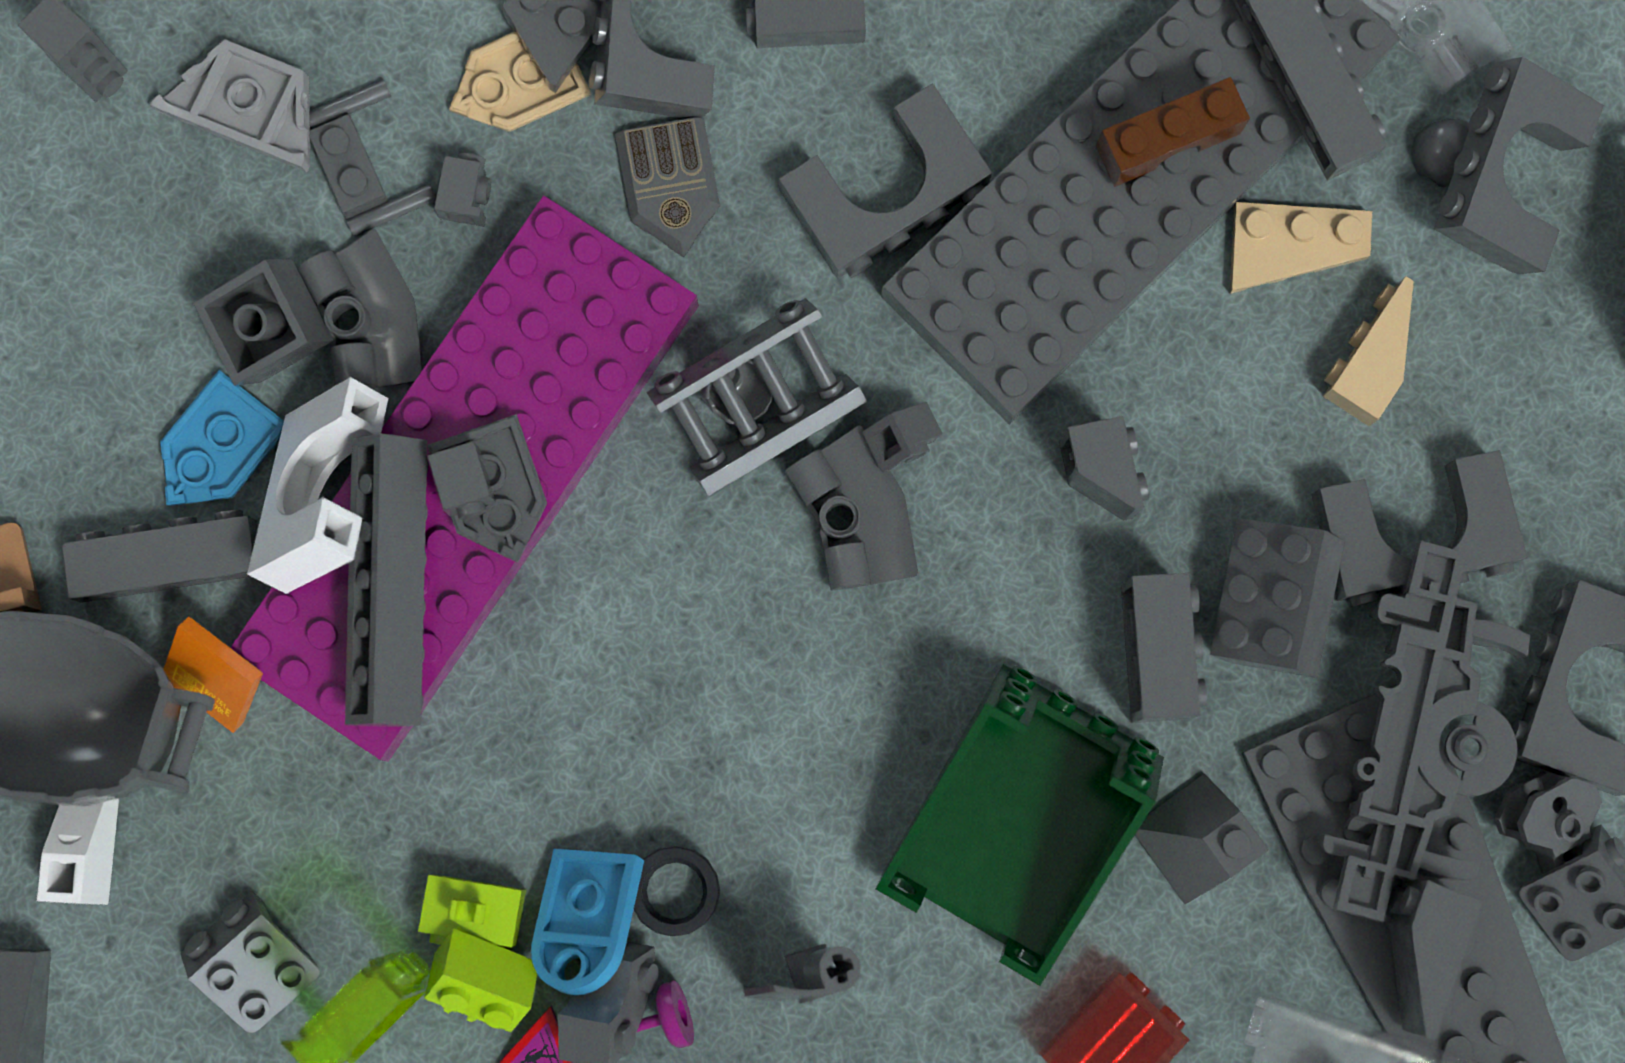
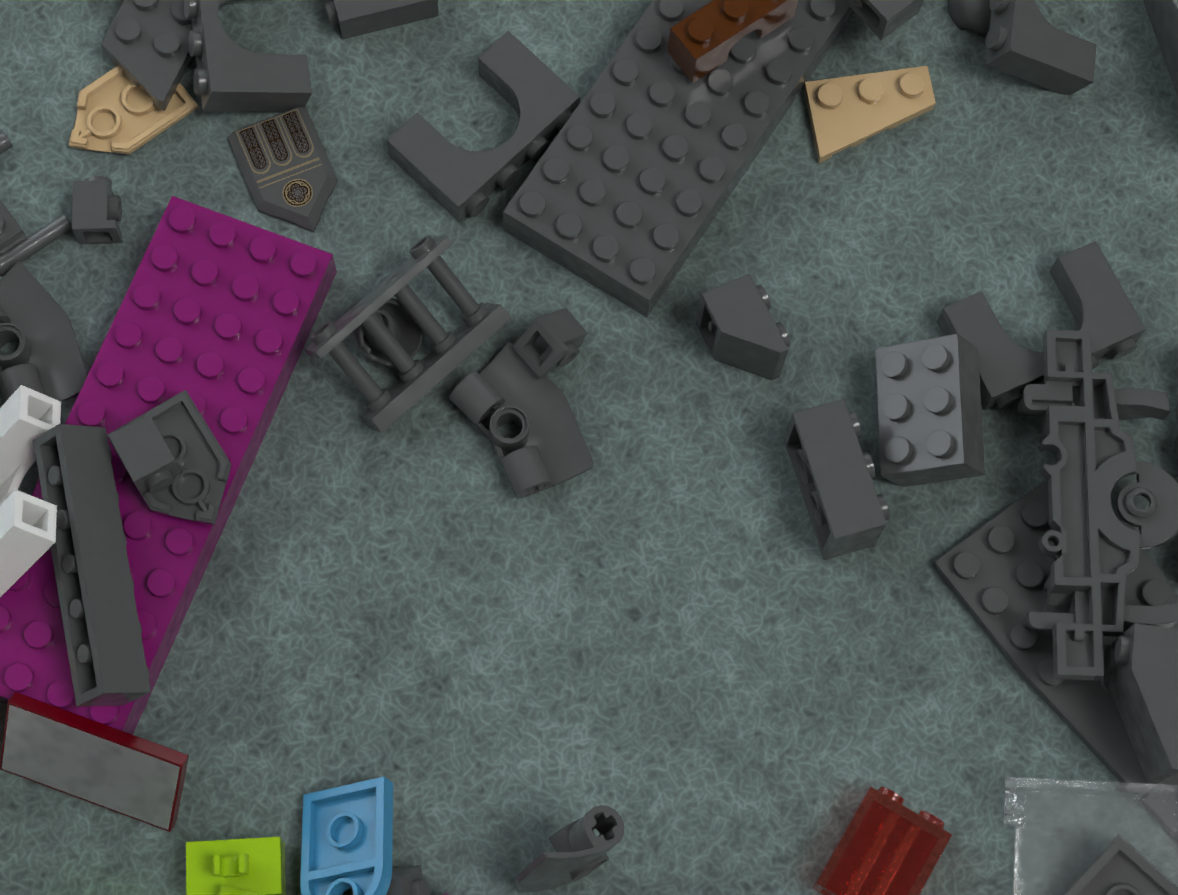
camera: 15 degrees left, 10 degrees down
(353, 772) = (93, 761): none -> flat silver tile
(709, 900) = (464, 808): black tyre -> none
(1026, 820) = (746, 669): dark green windscreen -> none
(1199, 839) = (913, 650): dark grey slope -> none
(1377, 363) = (966, 190): tan slope -> none

